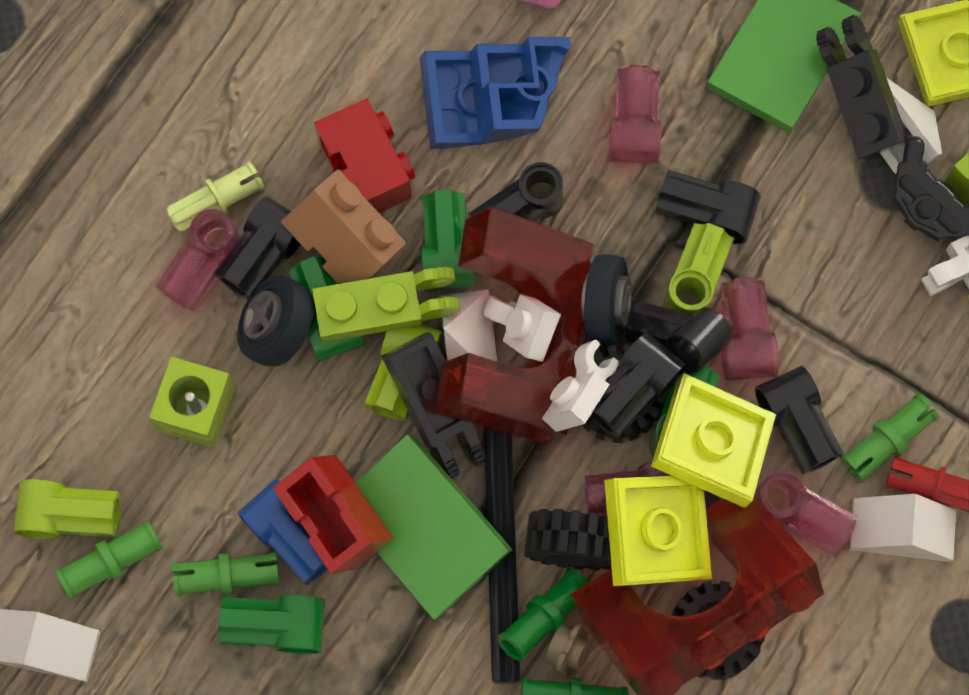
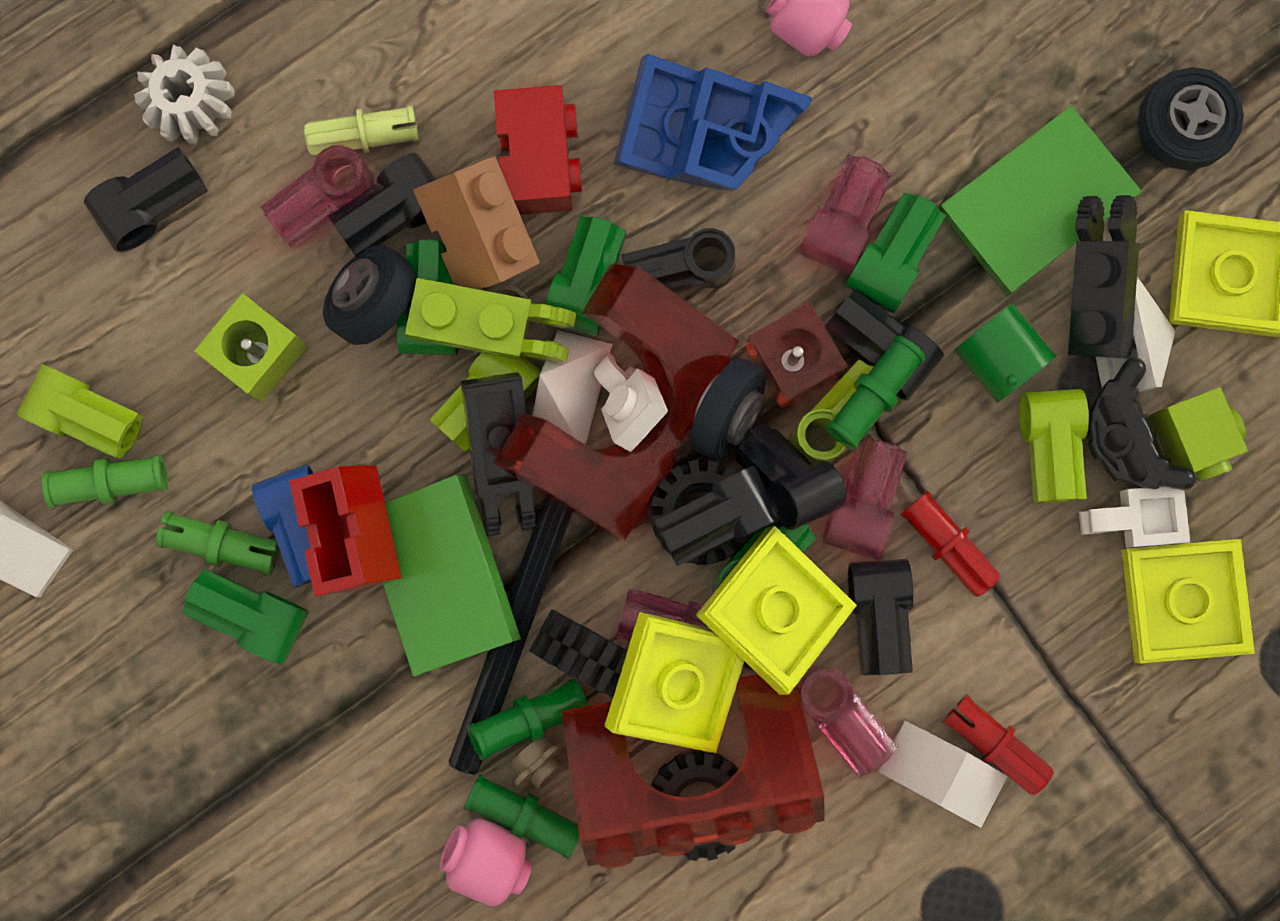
camera: 20 degrees right, 10 degrees up
(45, 211) = (186, 113): none -> white gear
(47, 328) = (133, 206): none -> black piece
(578, 396) = (652, 506): white plate -> none
(644, 237) = (796, 355): none -> clear red piece
(687, 141) = (891, 262): none -> green piece
(719, 239) = (875, 392): none -> green pin
(807, 174) = (1005, 353): none -> green piece
(830, 342) = (951, 544): none -> red axle
(873, 220) = (1054, 428): none -> lime piece
(889, 437) = (970, 672): bright green pin -> none

